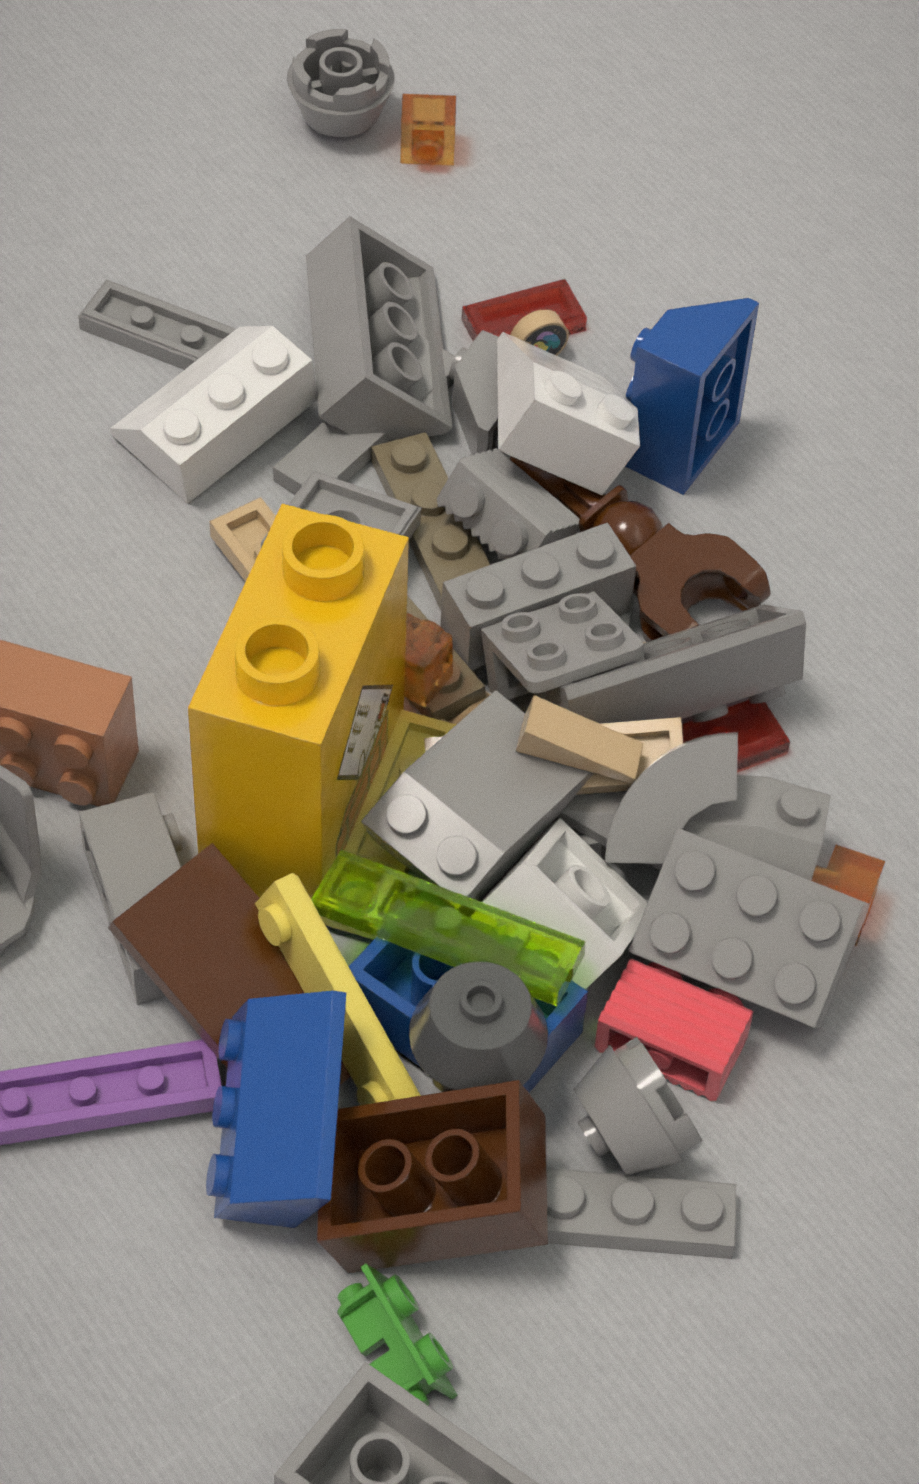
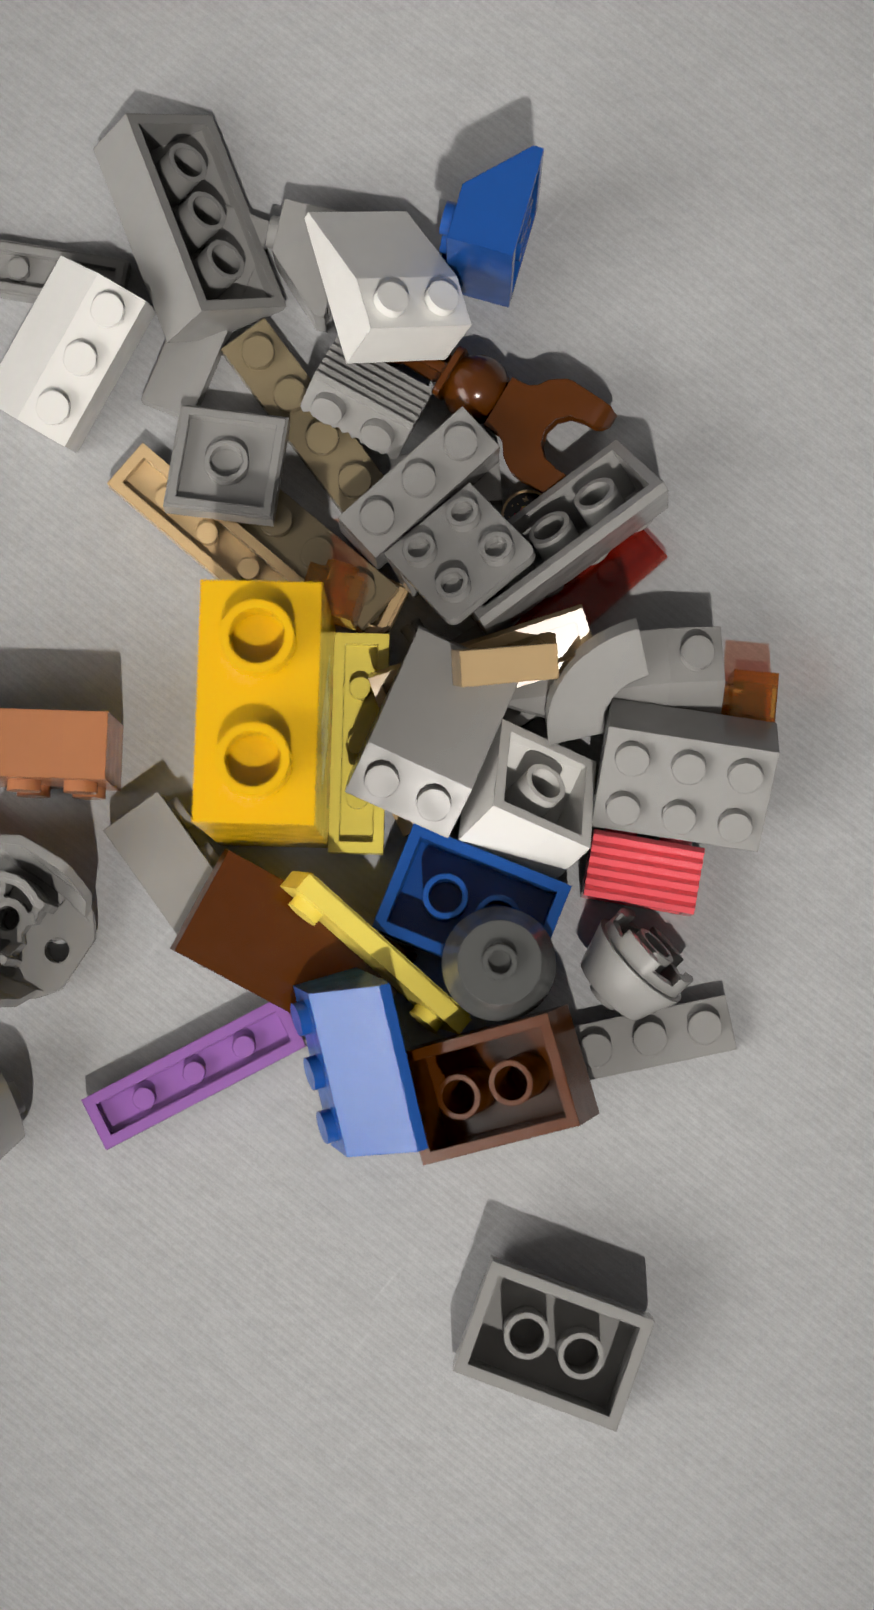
camera: 10 degrees left, 30 degrees up
(383, 1315) = (522, 1222): bright green hinge -> none
(446, 924) = (444, 868): clear neon green plate -> none
(505, 311) = (312, 148): clear red tile -> none
(542, 330) = (334, 176): tile -> none

